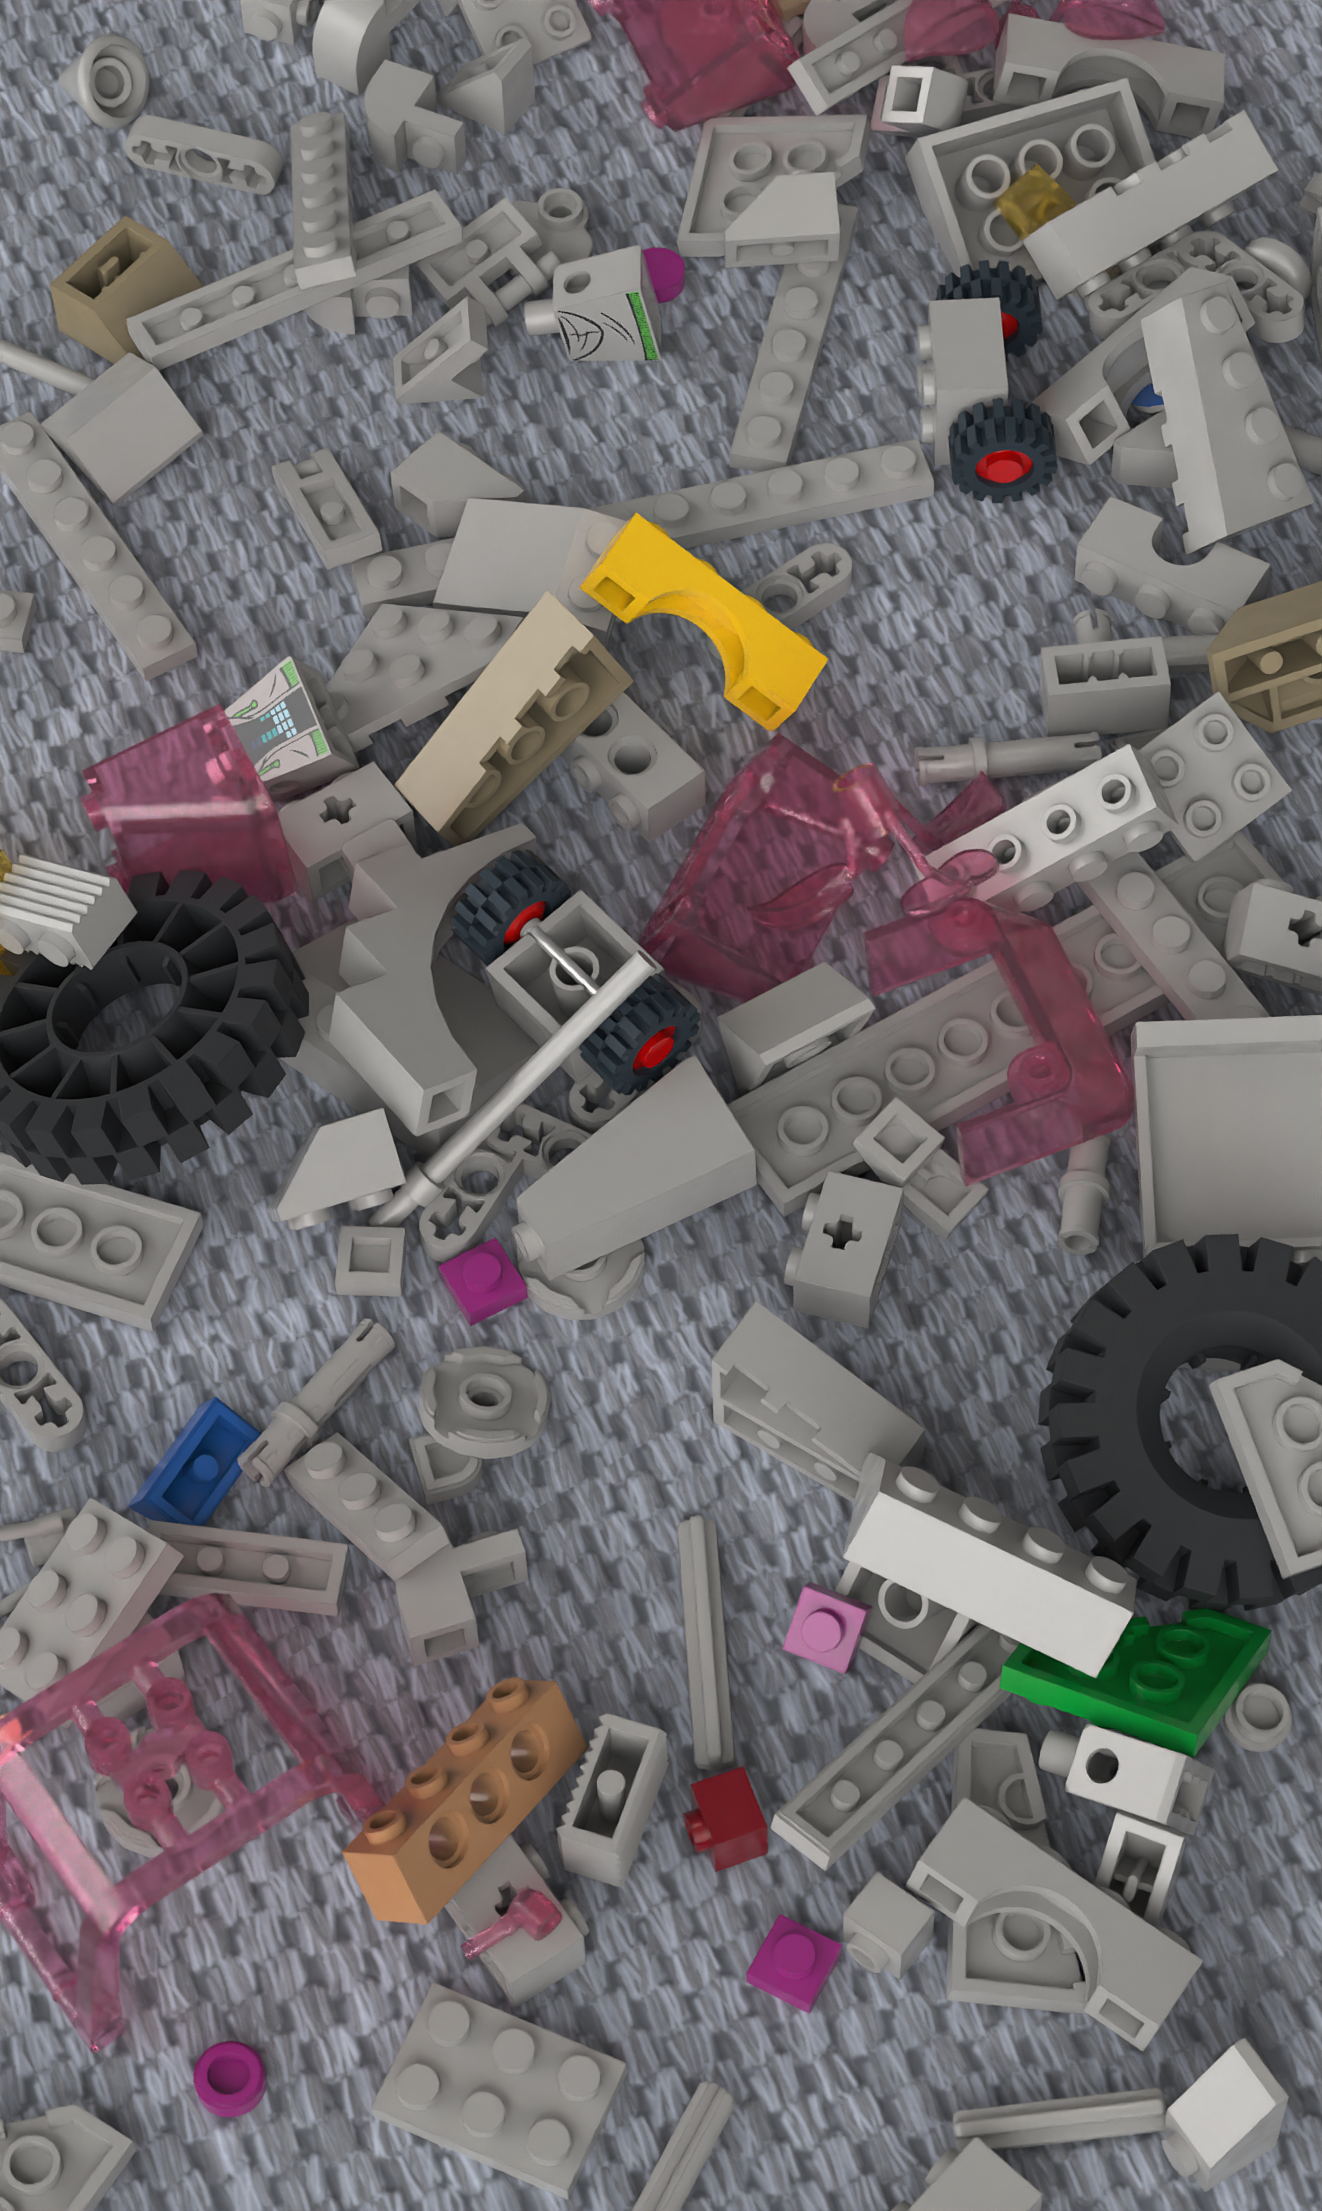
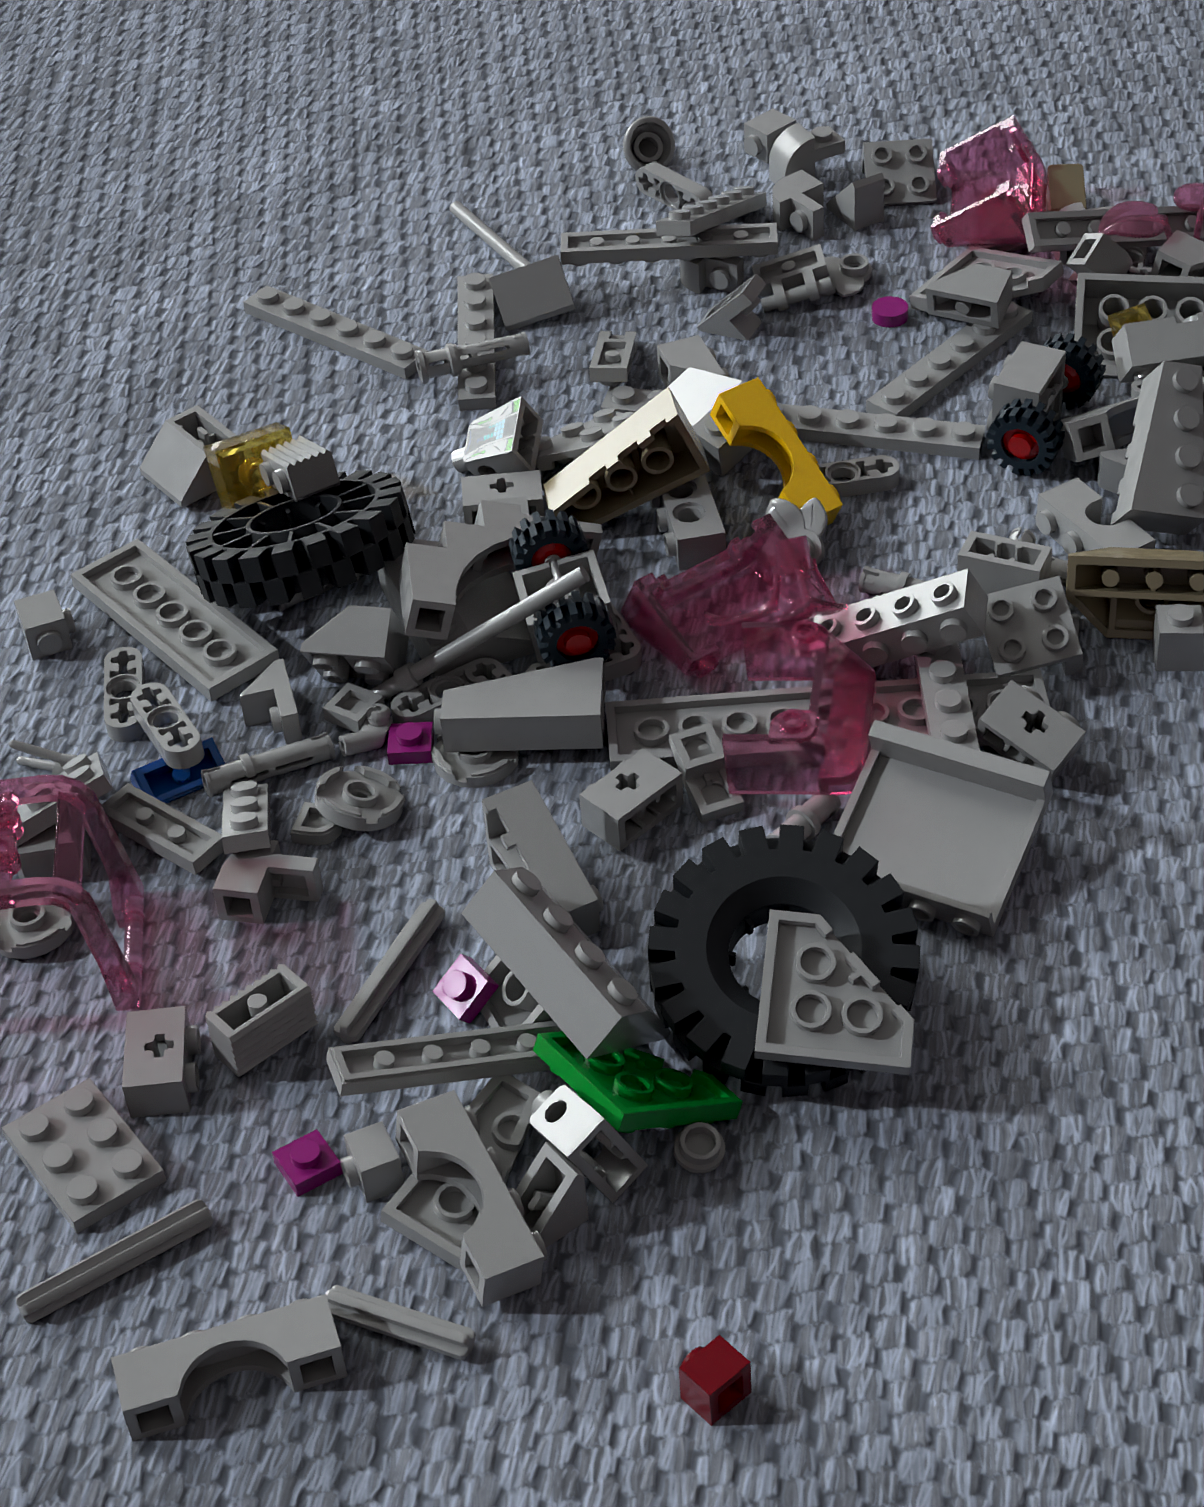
camera: 30 degrees right, 15 degrees down
(104, 604) = (515, 345): none -> light grey pin
(116, 280) = (578, 215): dark tan slope -> none
(156, 1433) = (165, 738): none -> light grey beam
(190, 806) = (396, 431): clear pink windscreen -> none
(259, 1292) = (272, 700): none -> light grey slope
(422, 1291) = (372, 734): none -> light grey arm
(464, 1800) = (92, 976): medium nougat brick -> none
(528, 1911) = (155, 1049): clear pink hand -> none
(602, 309) = (840, 310): light grey torso -> none
(726, 1820) = (311, 1063): dark red plate -> none
(791, 1025) = (677, 669): light grey slope -> none
(798, 716) = (797, 522): none -> light grey plate
(1225, 2118) = (493, 1360): slope -> none

